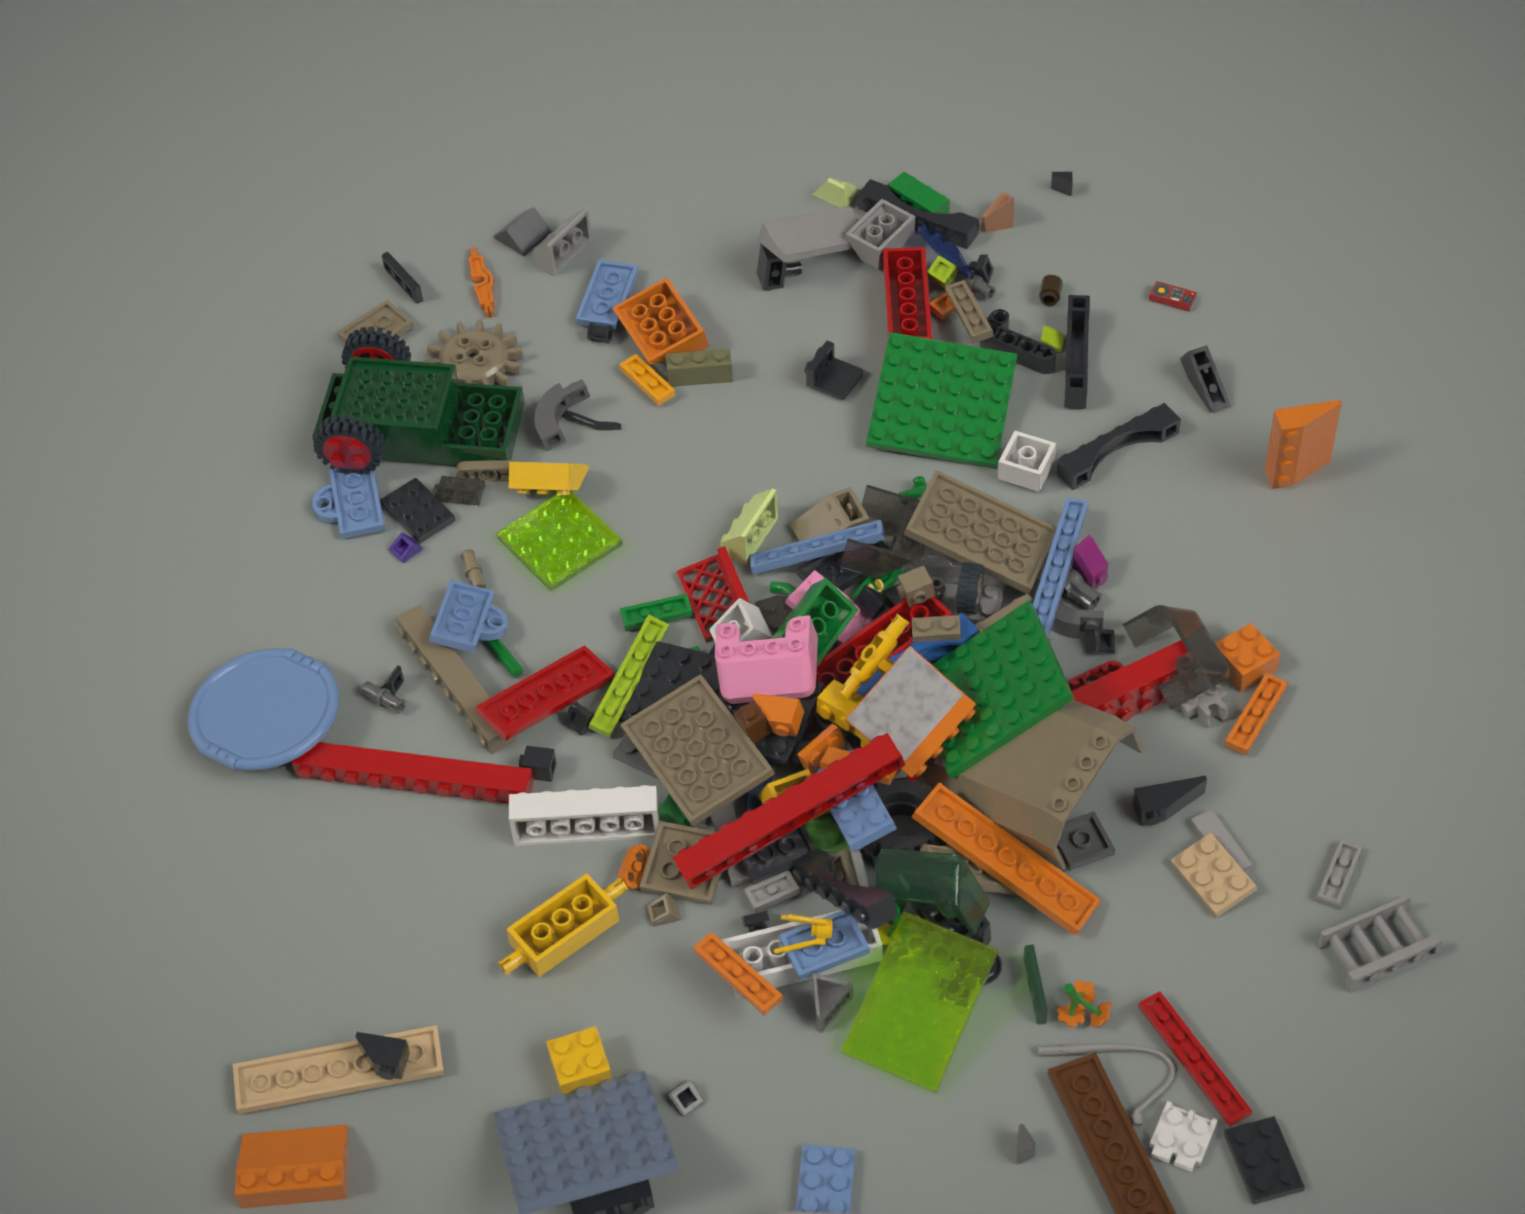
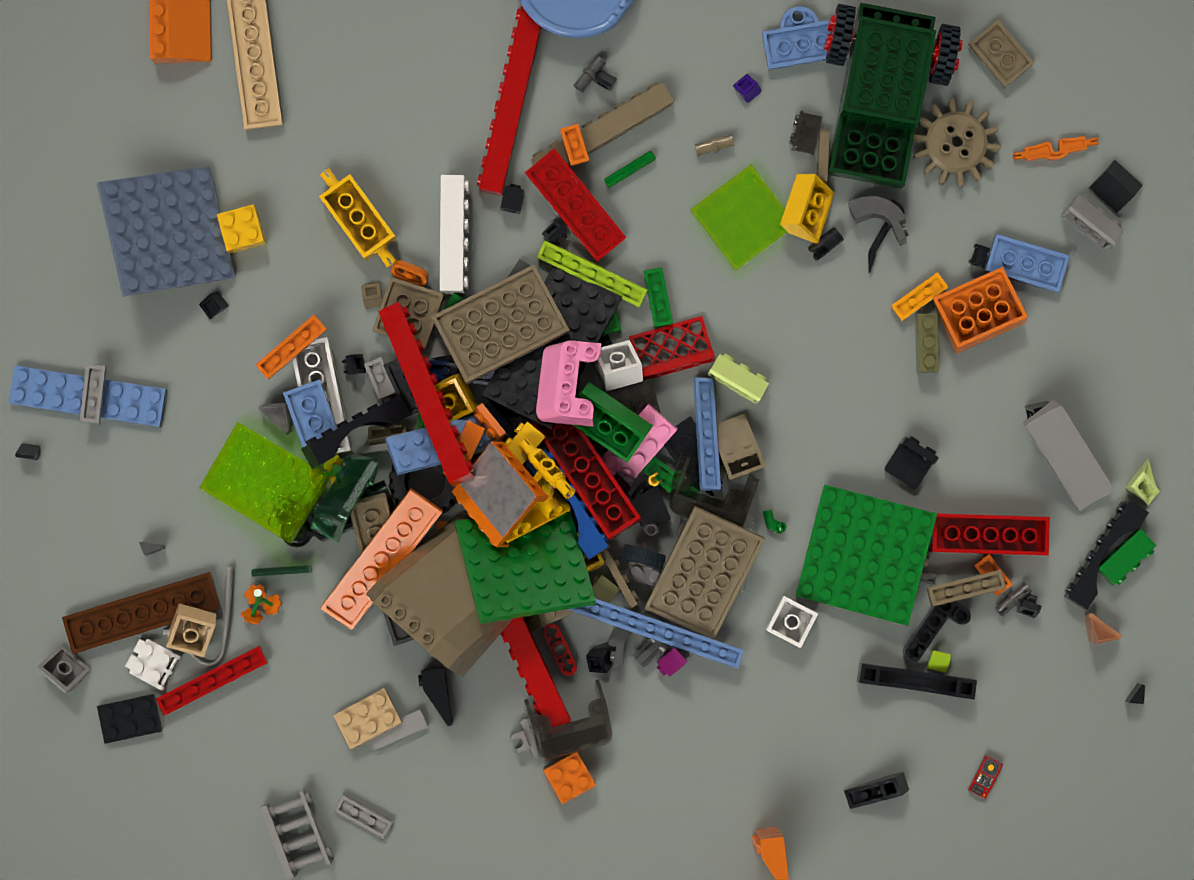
camera: 90 degrees right, 35 degrees up
(384, 1054) = (253, 84): black slope -> none
(402, 277) = (1062, 75): black tile -> none
(417, 510) = (787, 97): black plate -> none
(467, 618) = (657, 139): medium blue plate -> none
(471, 692) = (574, 145): none -> orange plate
(582, 455) = (826, 243): none -> black hinge
(753, 721) = (513, 369): reddish brown brick -> none
(781, 712) = (517, 390): orange slope -> none
(782, 588) = (674, 407): green arm -> none
(820, 928) = (316, 411): yellow plant -> none
(869, 601) = (641, 474): black slope -> none
(880, 229) = (1077, 516): light grey slope -> none
(915, 586) = (632, 510): dark tan brick -> none
(936, 628) = (591, 523): dark tan plate -> none
(942, 272) = (1022, 569): lime brick -> none
(947, 250) = (1044, 576): clear blue slope -> none
(1050, 290) = (998, 666): dark brown brick -> none
(1130, 1075) = (191, 630): none -> tan brick
(1153, 426) = (826, 738): black arch -> none
(1256, 714) = (515, 776): orange plate -> none

